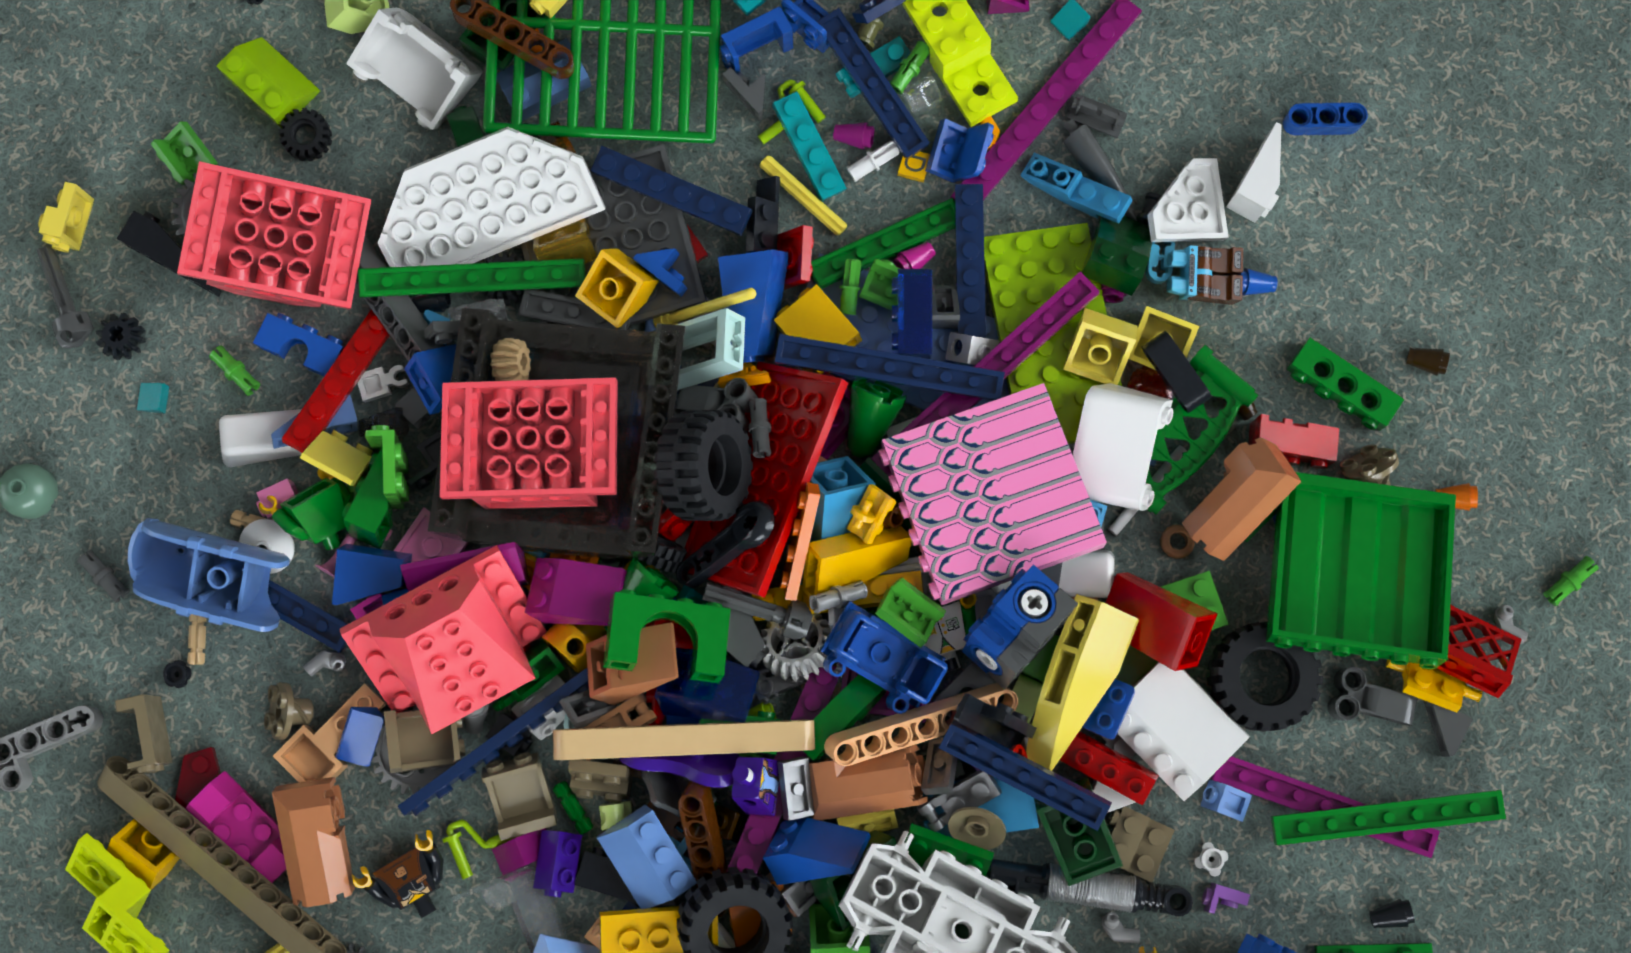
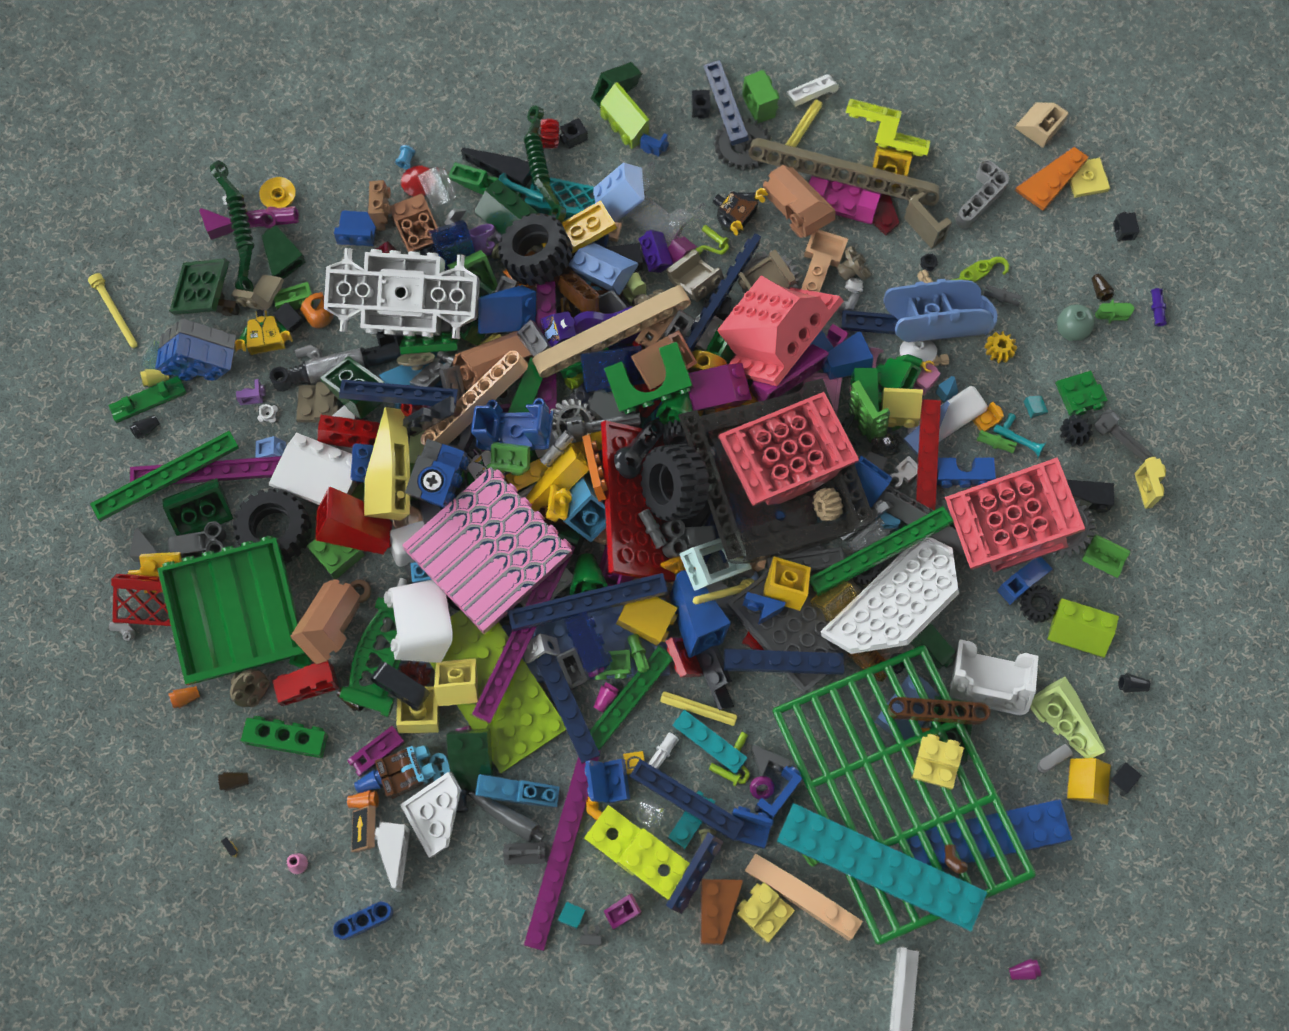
camera: 155 degrees right, 10 degrees down
(81, 386) = (1081, 393): none -> green plate
(118, 628) = (982, 268): none -> lime piece
(147, 490) = (997, 352): none -> yellow gear
(215, 381) = (1004, 431): none -> teal piece
(222, 405) = (989, 418): none -> light orange bracket
(259, 472) = (947, 389): none -> dark azure slope
(301, 684) = (854, 285): none -> white plate
(311, 166) = (1024, 579): none -> blue slope
(360, 735) = (803, 268): slope -> none
(573, 807) = (657, 283): green axle -> none
(771, 64) = (760, 781): none -> magenta piece
(855, 134) = (683, 764): magenta cone -> none
(910, 67) = (665, 835): bright green pin -> none
(1232, 318) = (376, 749): none -> magenta plate
(1269, 262) = (363, 799): none -> orange cone
(1286, 221) = (363, 829): none -> tile
(1357, 754) = (196, 507): none -> dark green slope
(1382, 222) = (300, 866): none -> bright pink cone
(1458, 278) = (230, 847): none -> black piece
(1571, 580) = (90, 674): bright green pin -> none

